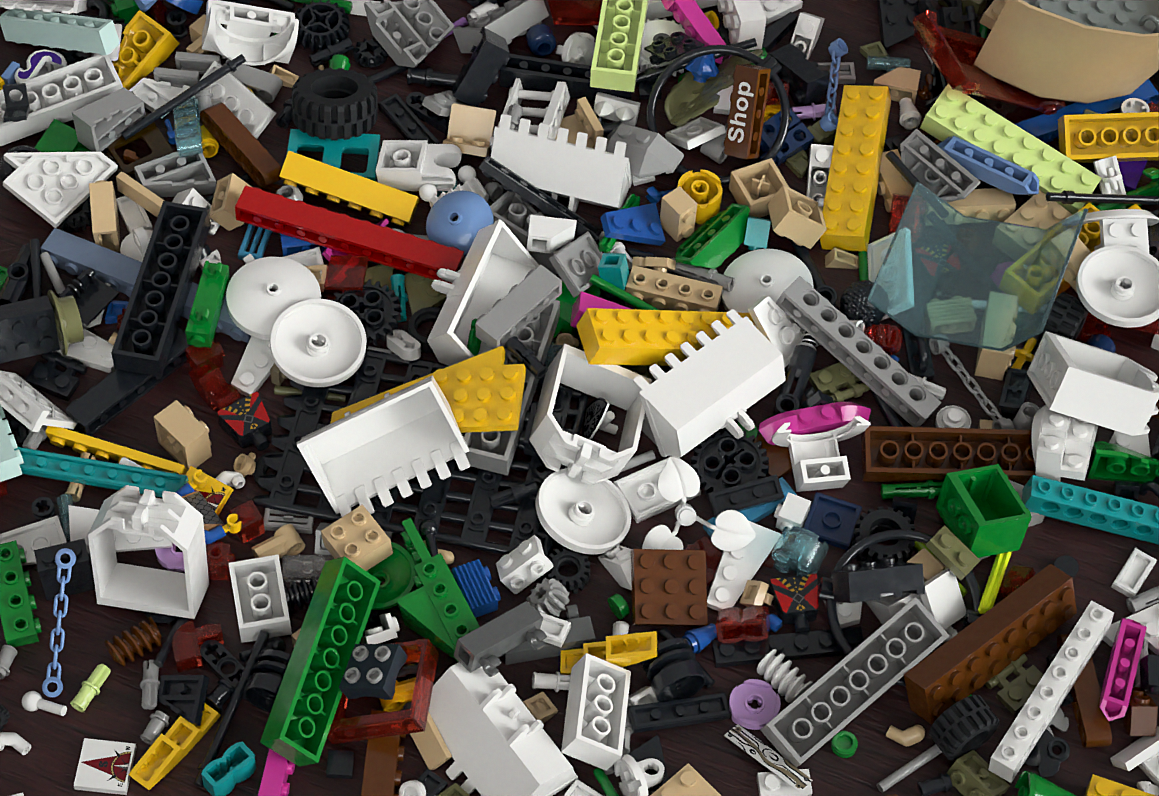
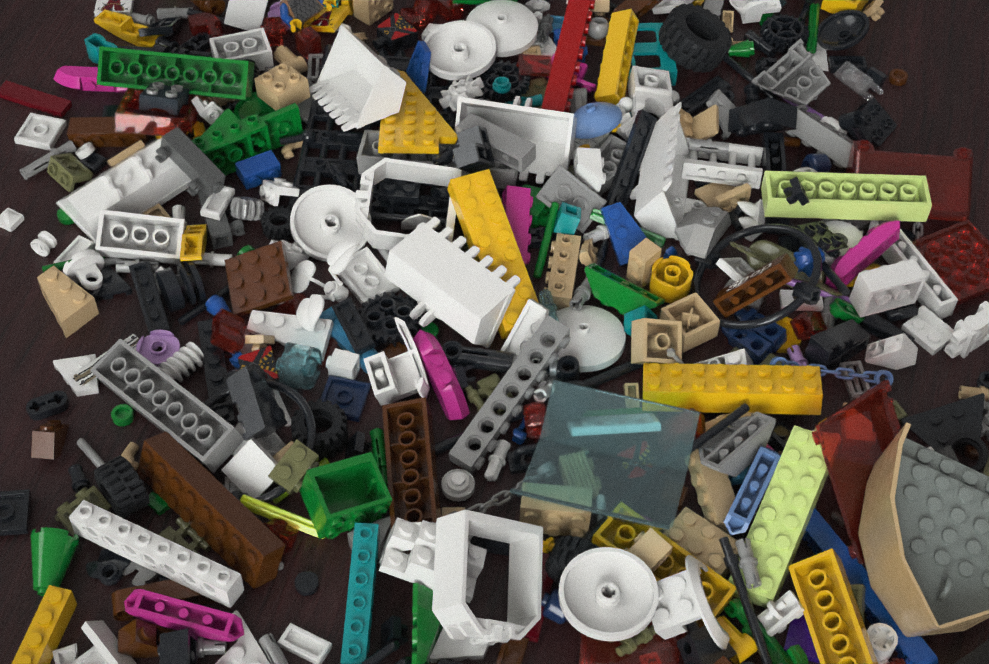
camera: 85 degrees right, 5 degrees down
(261, 252) = (545, 28): none -> dark grey axle
(339, 387) = (419, 65): none -> blue wing
(386, 343) = (464, 88): none -> white gear
(389, 305) = (501, 85): none -> teal plate
(549, 326) = (473, 150): none -> brick
(636, 43) = (797, 192): none -> black tile
(739, 305) = (547, 301): none -> clear light blue axle
(1072, 184) = (748, 563): none -> light grey pin

